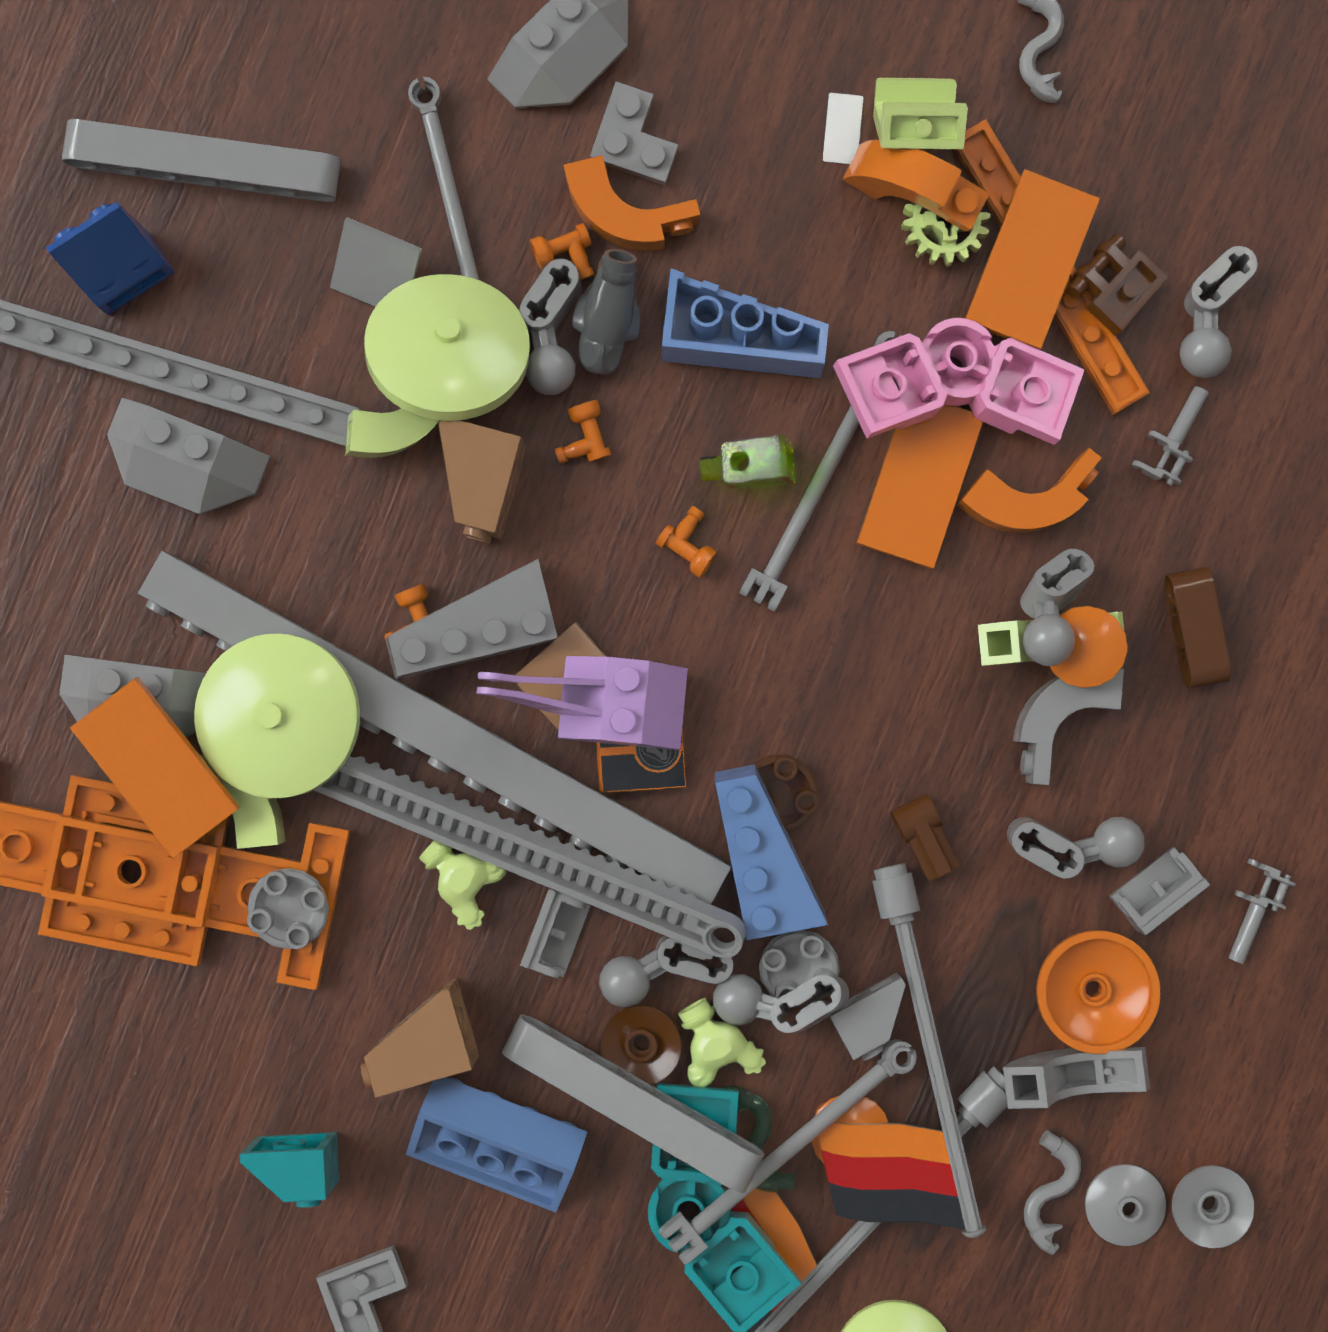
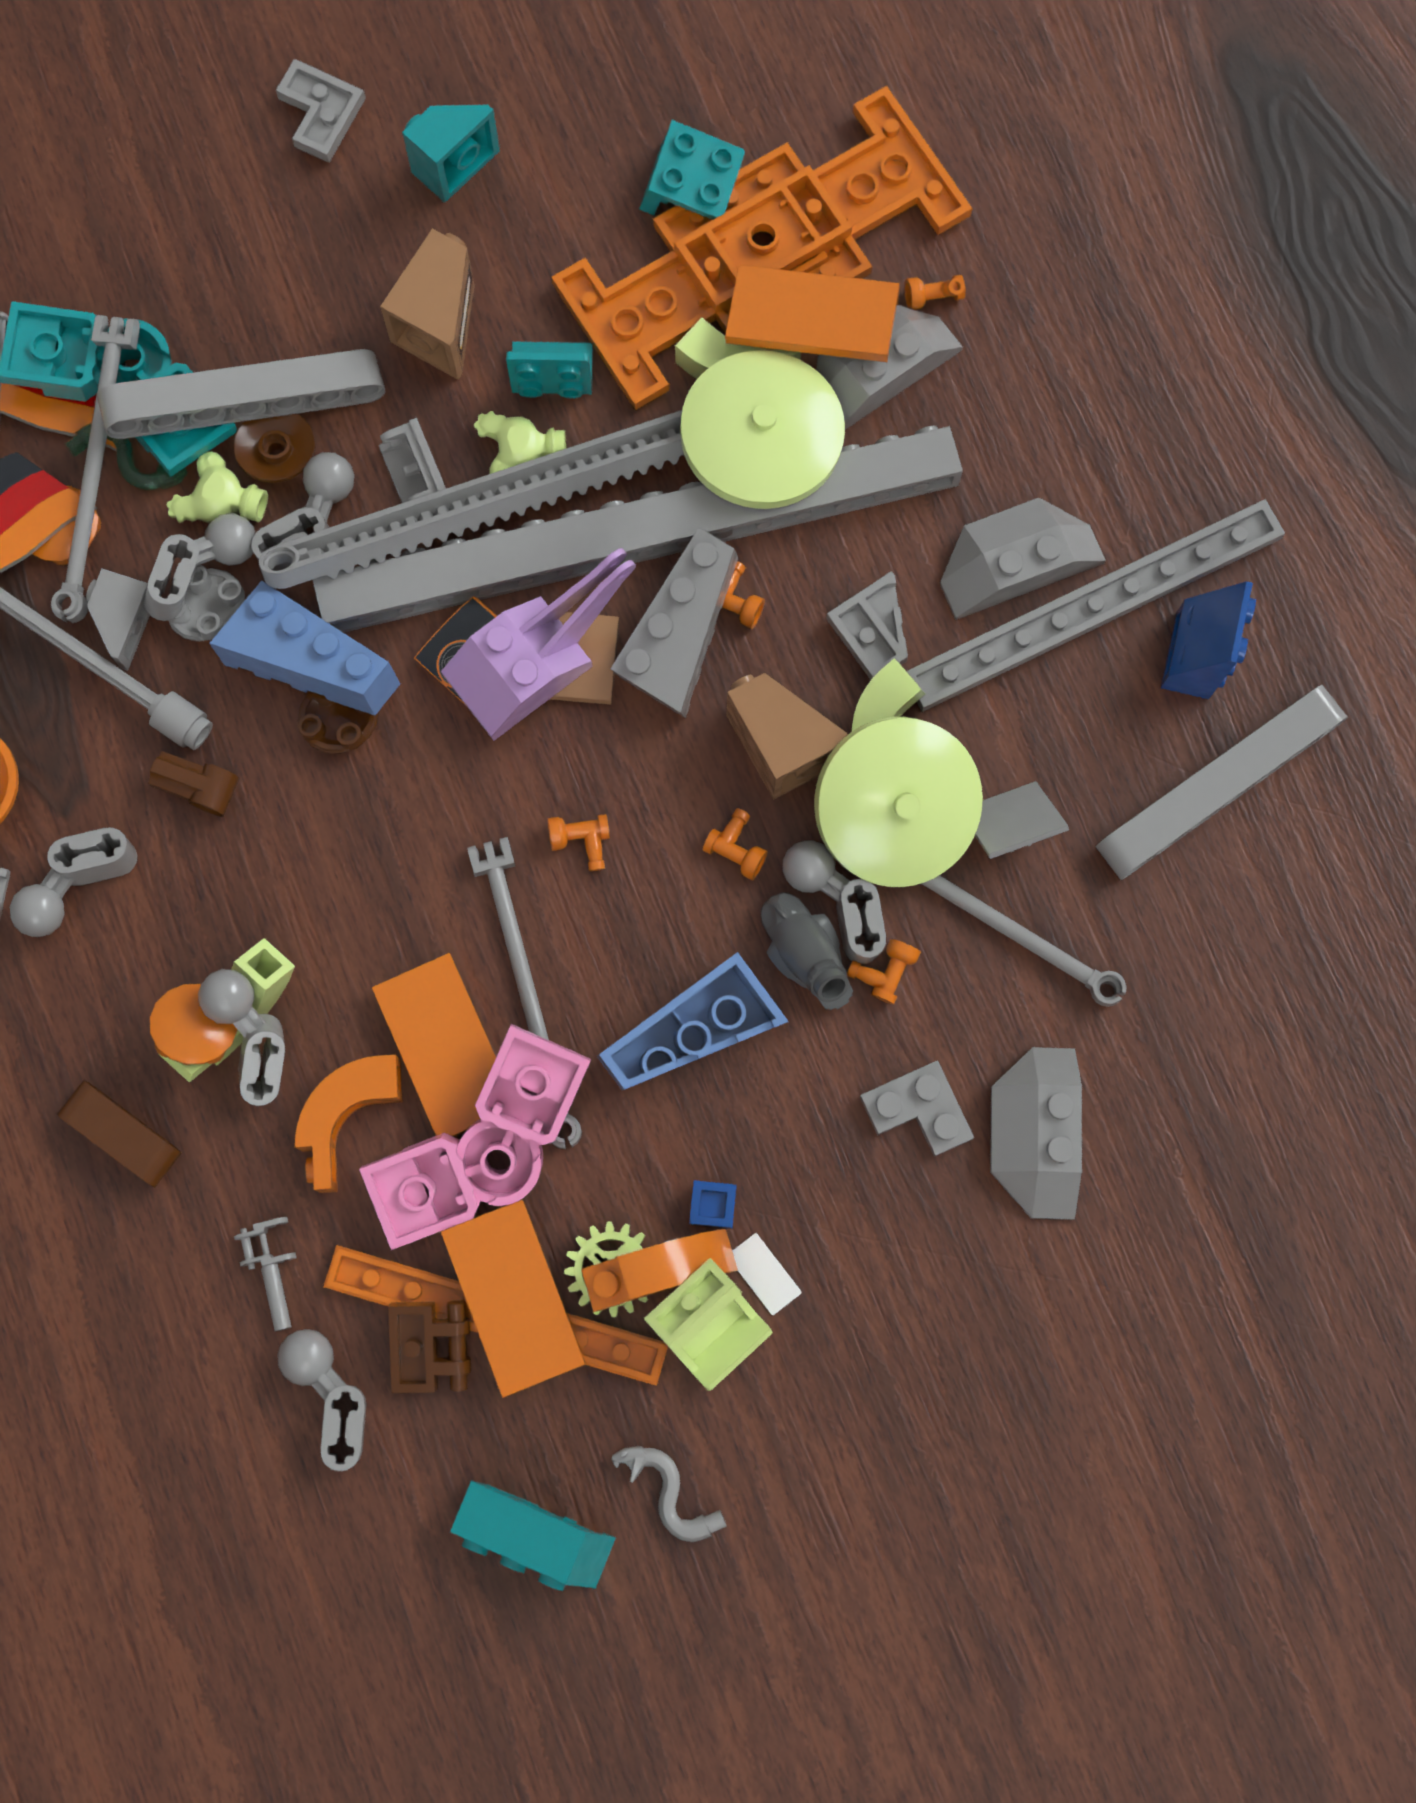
camera: 135 degrees right, 10 degrees down
(56, 724) = (917, 292): none -> orange piece
(133, 974) = (693, 172): none -> teal bracket
(287, 908) = (624, 309): light grey dish -> none
(338, 501) = (872, 626): none -> light grey wing
(381, 918) = (550, 368): none -> teal bracket
(496, 1142) = (317, 290): medium blue slope -> none
(618, 221) = (876, 1025): orange arch -> none
(769, 463) = (584, 936): clear neon green torso -> none
(836, 202) = (712, 1204): none -> blue plate
(1045, 713) = (182, 956): light grey arch -> none
(1162, 94) = (531, 1538): none -> teal wedge

